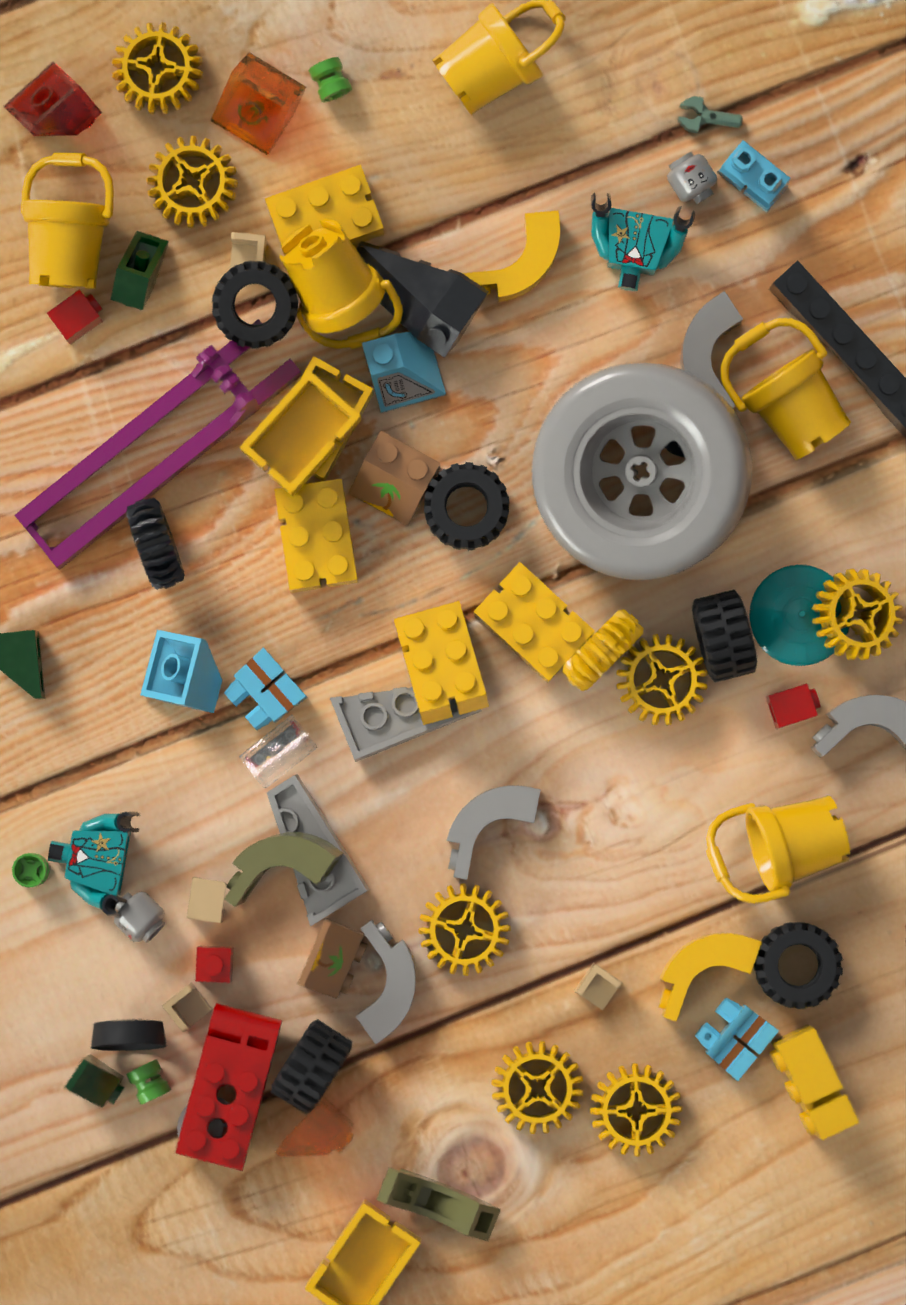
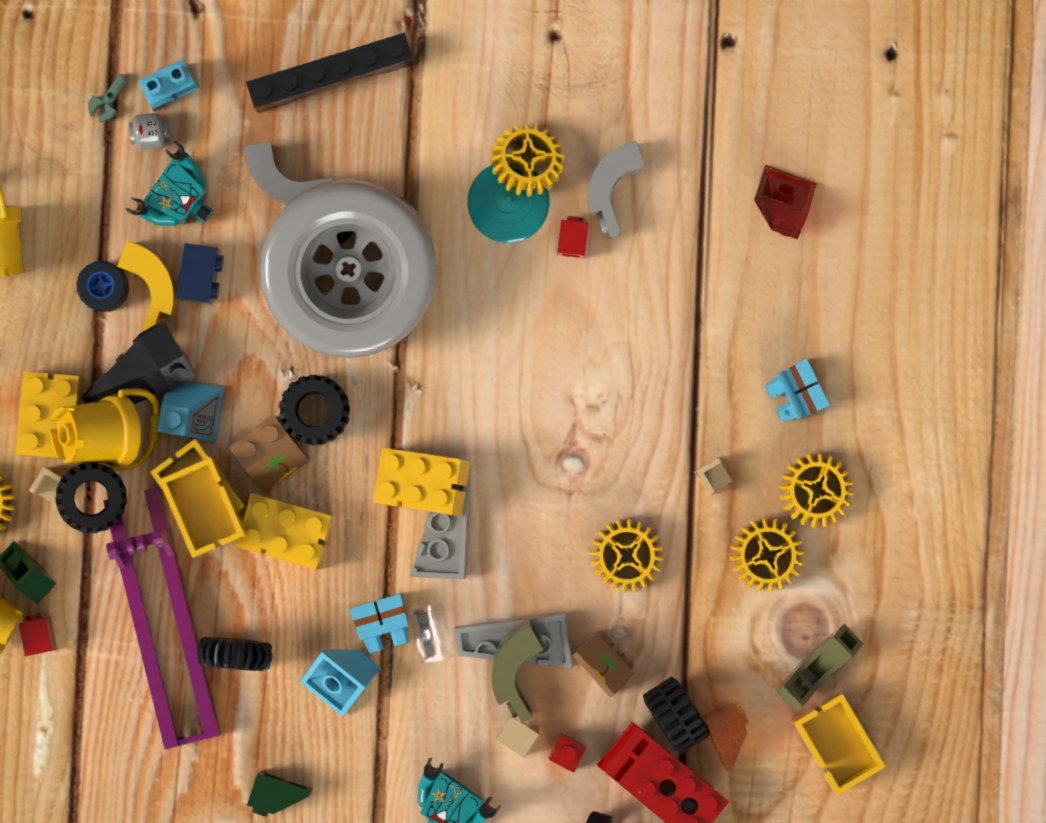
camera: 65 degrees left, 0 degrees up
(140, 917) = (507, 792): light grey head -> none
(187, 1007) = (590, 787): tan panel -> none
(394, 1003) = (658, 634): light grey arch -> none
(495, 196) = (93, 286): none -> black wheel
(496, 804) = (544, 497): light grey arch -> none
(533, 622) = (423, 400): yellow piece -> none
(559, 308) = (199, 274): none -> dark blue brick
(602, 650) = (467, 358): yellow gear -> none
(687, 667) = (524, 324): yellow gear -> none
(699, 954) = (724, 391): yellow arch -> none
(724, 635) = (498, 263): black tyre -> none
(785, 844) = (672, 290): yellow piece -> none
(794, 398) = (346, 130): yellow piece -> none
(813, 1083) = (856, 351): yellow piece -> none
(828, 965) = (782, 305): black tyre -> none

